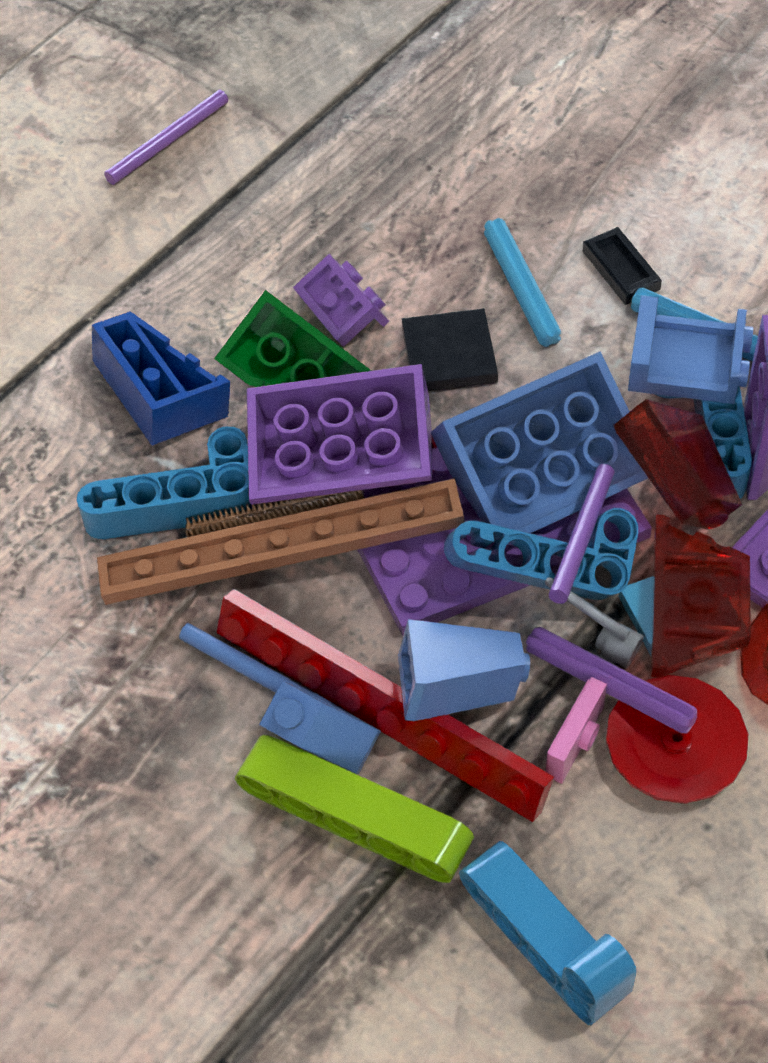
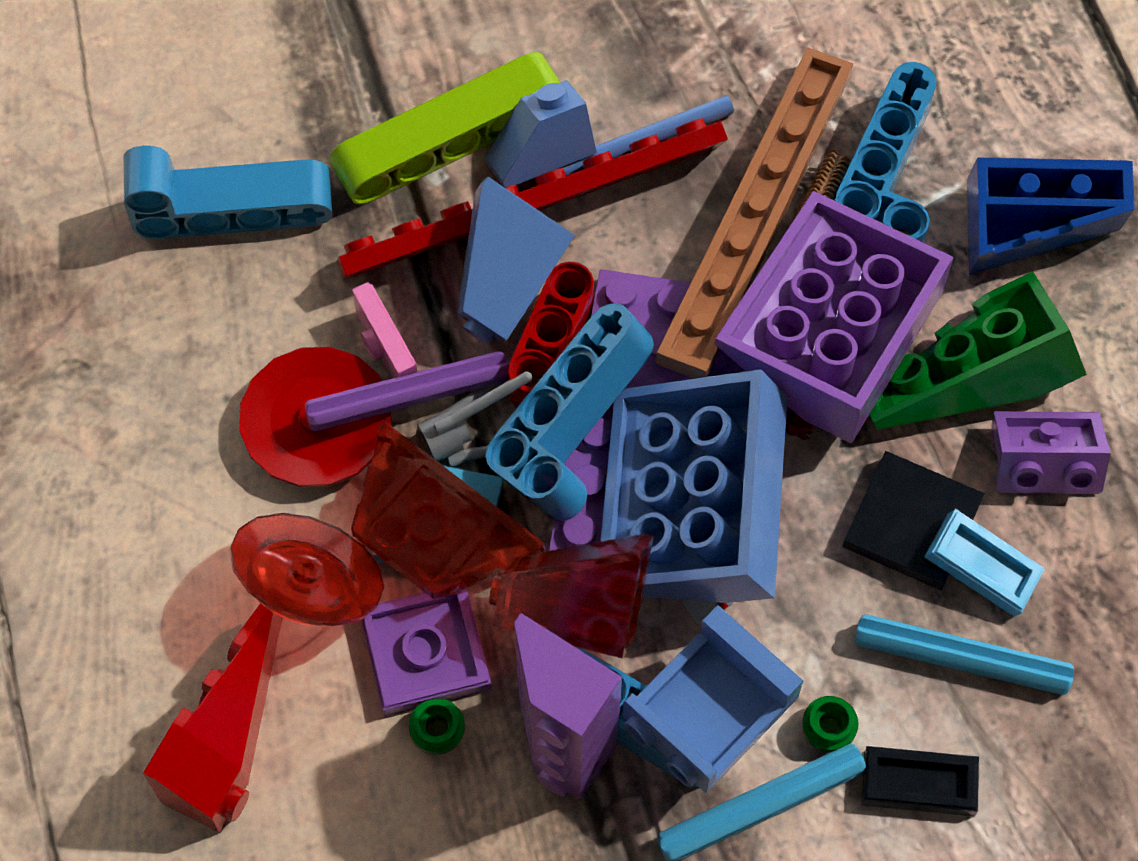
camera: 120 degrees right, 10 degrees up
(452, 294) = (984, 562): none -> medium azure tile
(502, 604) = (552, 315): none -> red beam
(581, 534) = (557, 436): medium lavender bar -> none
(623, 320) = (833, 708): none -> green plate

